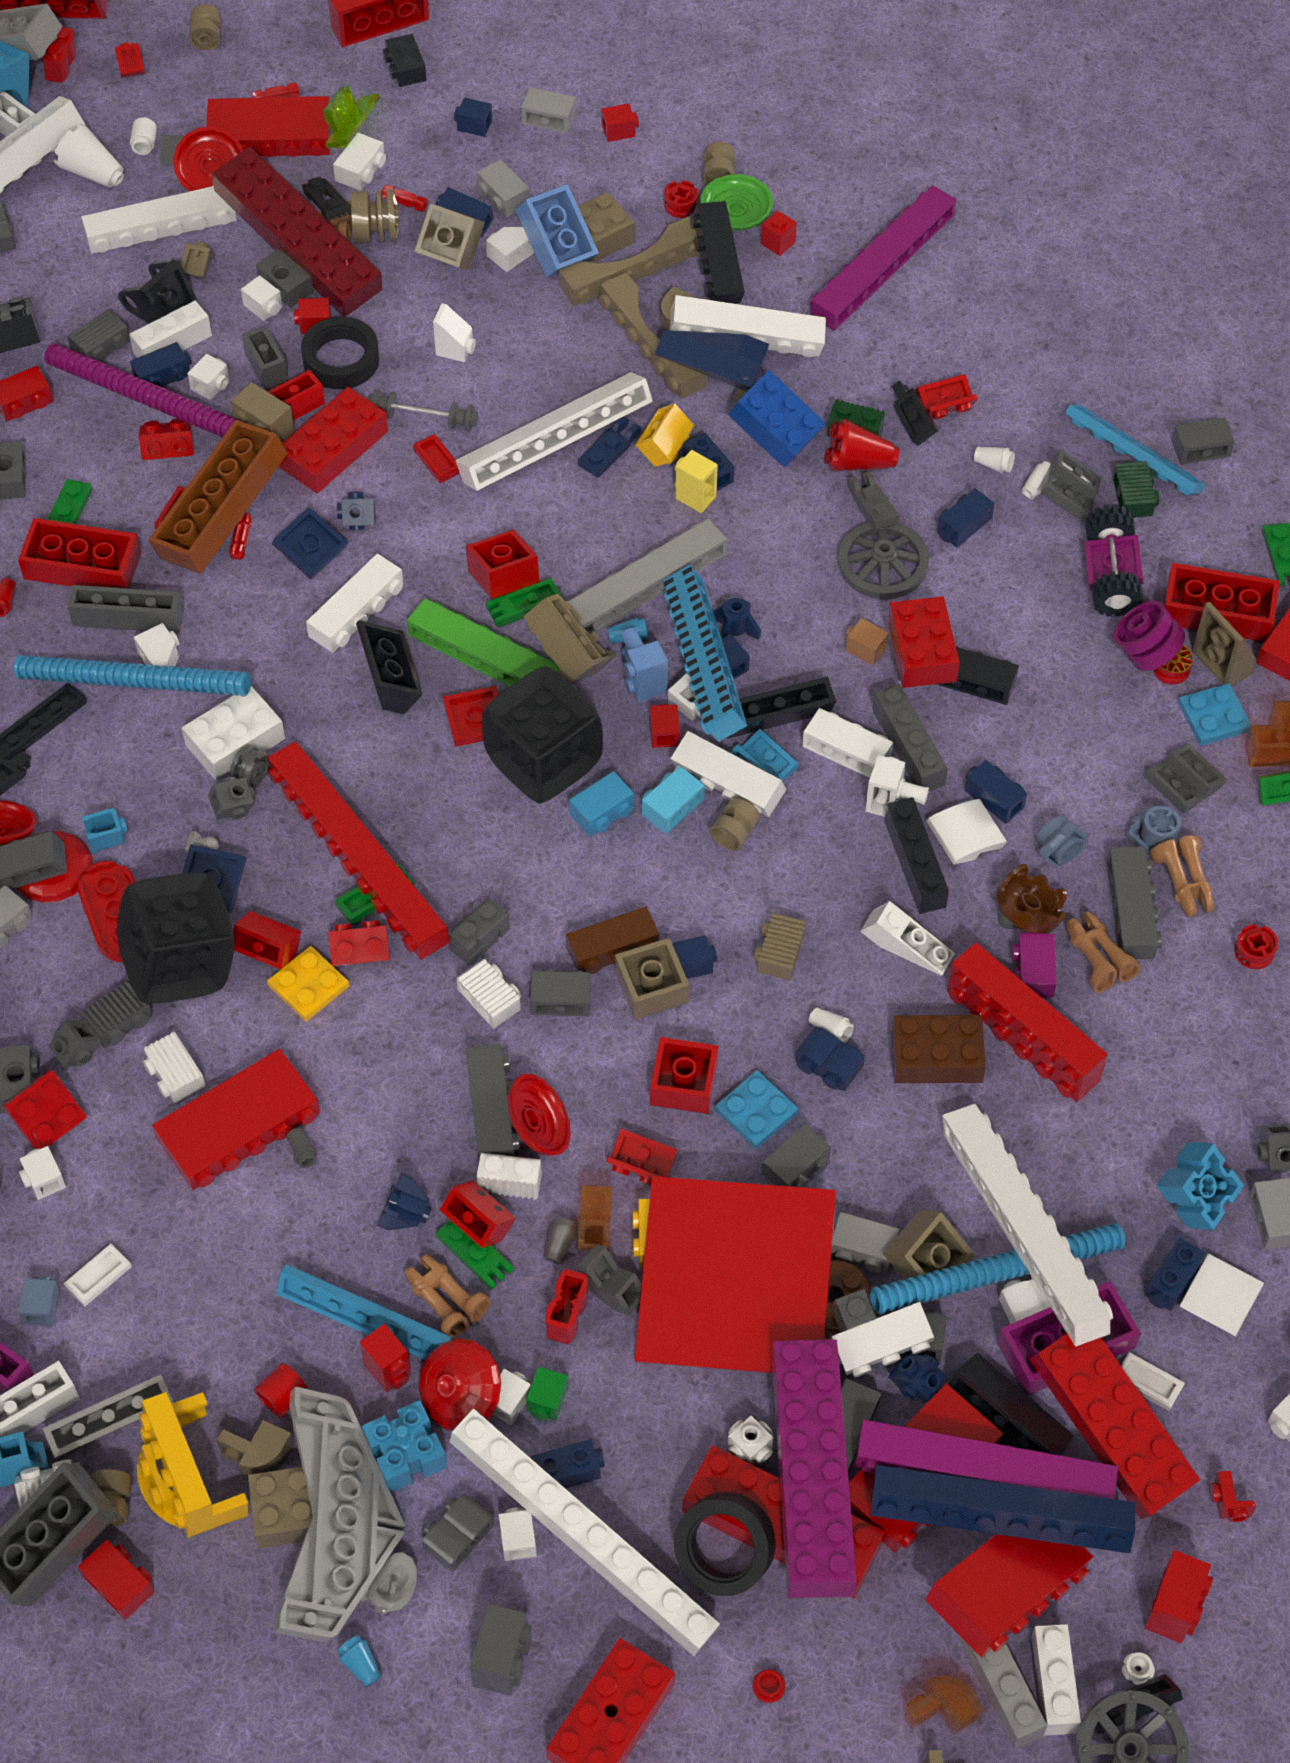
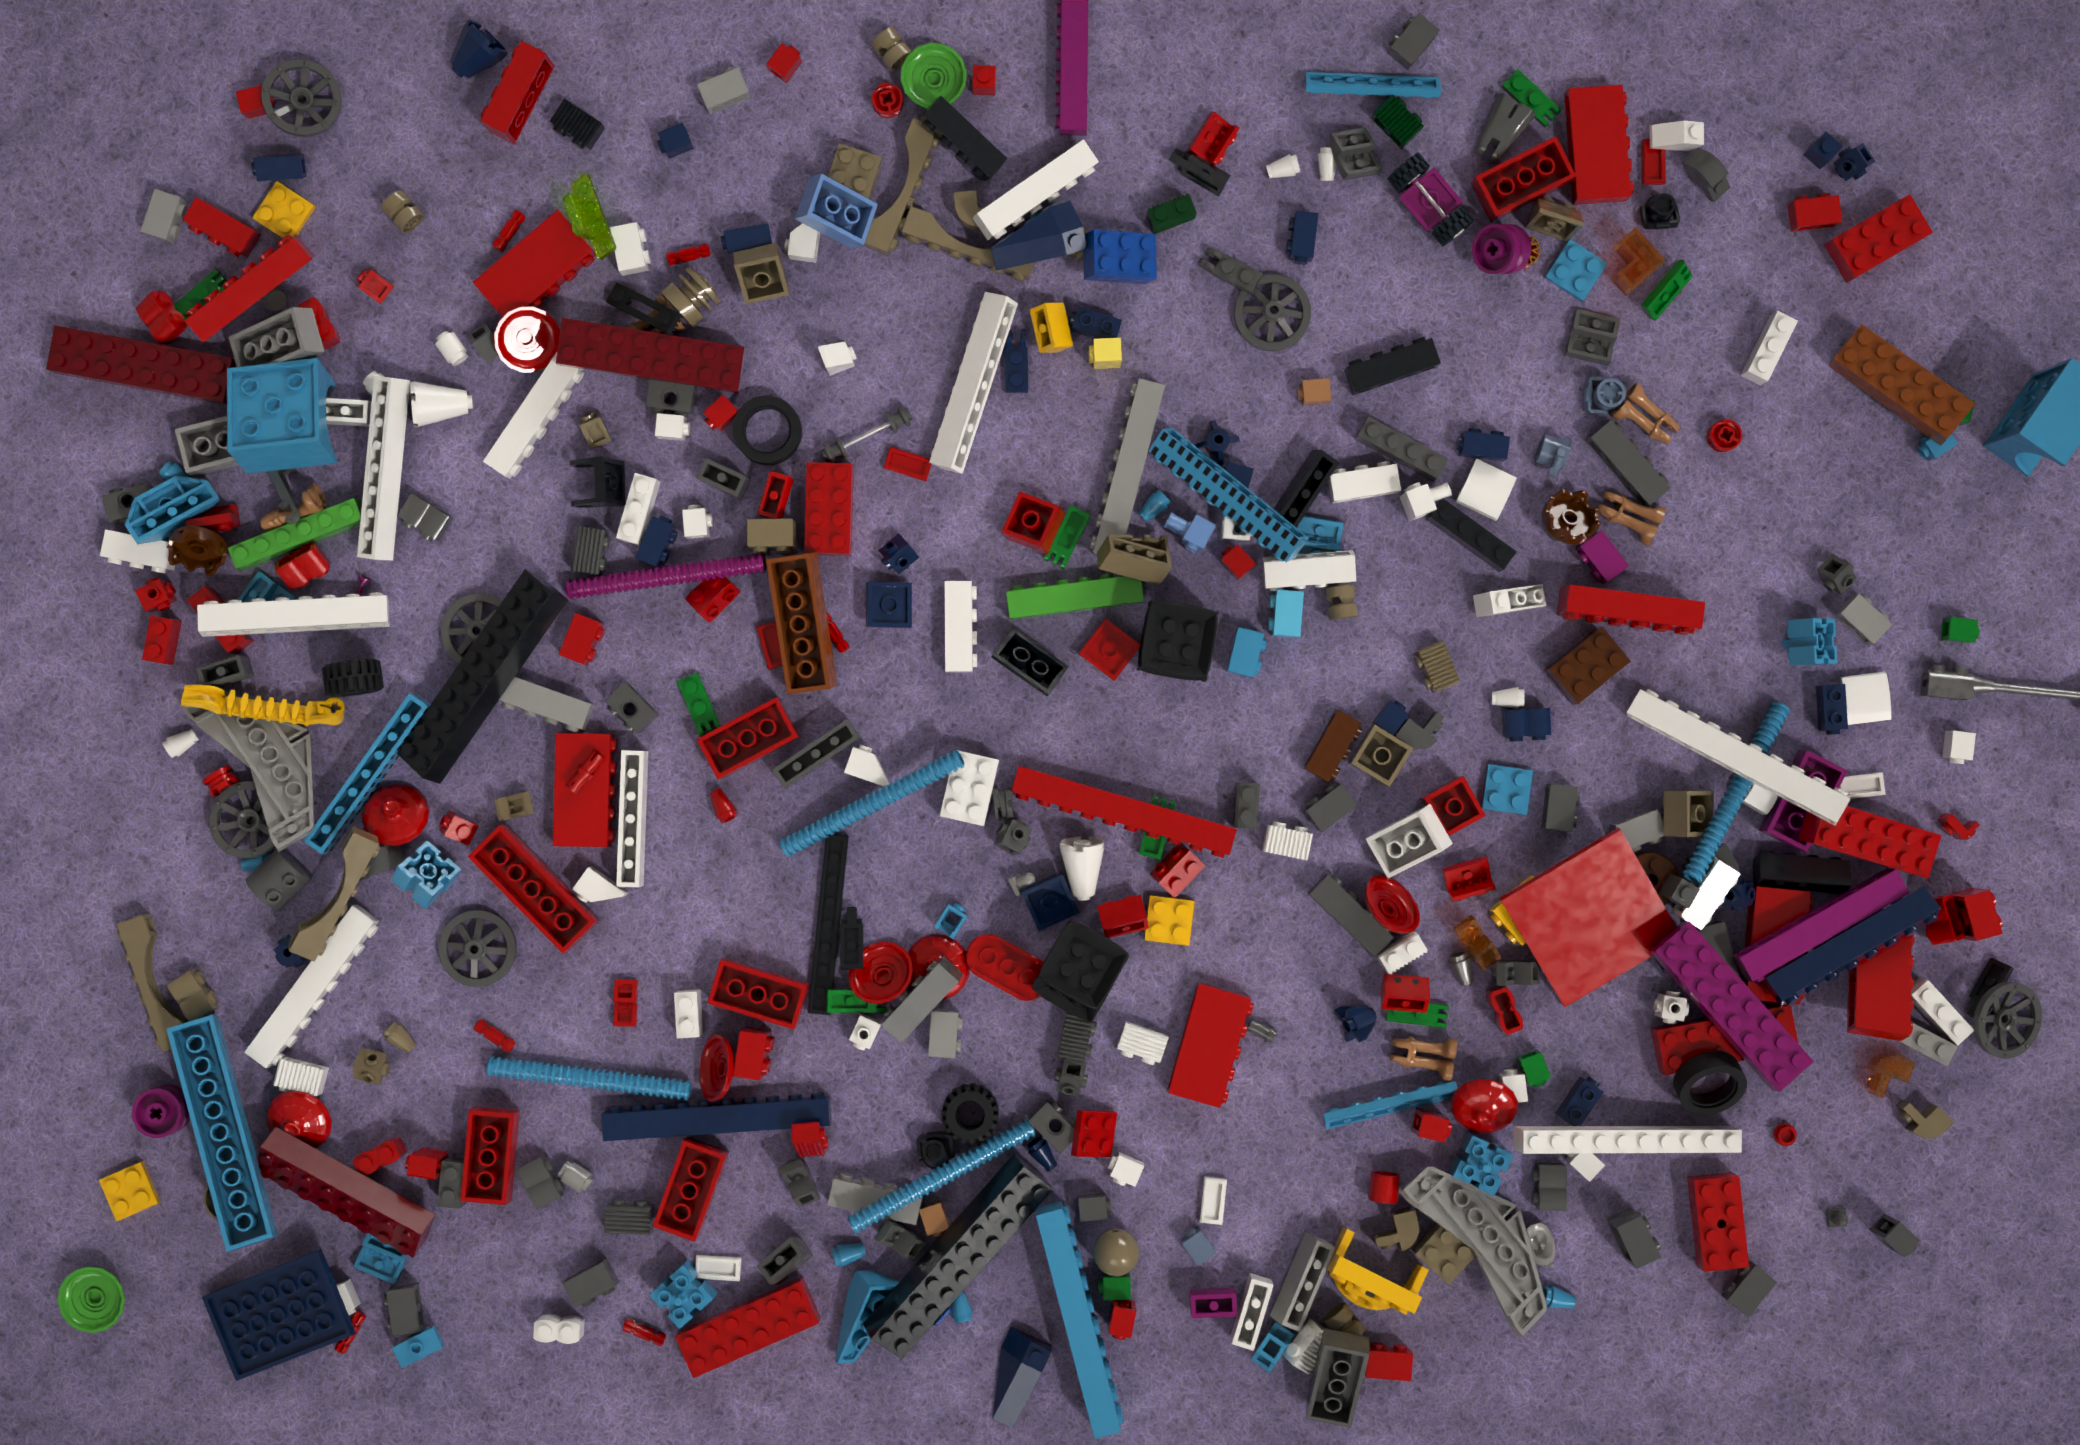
camera: 35 degrees left, 30 degrees up
(271, 868) = (1082, 864): none -> white cone
(502, 187) = (753, 192): light grey brick -> none
(609, 1065) = (1409, 841): none -> white brick
(708, 995) = (1420, 737): none -> dark grey brick
(858, 449) = (1190, 237): red cone -> none
(923, 642) = (1363, 374): red brick -> none
(1136, 1579) = (1949, 925): none -> red brick
(1141, 1660) = (1979, 966): white plate -> none
(1239, 553) = (1503, 126): none -> dark grey piece

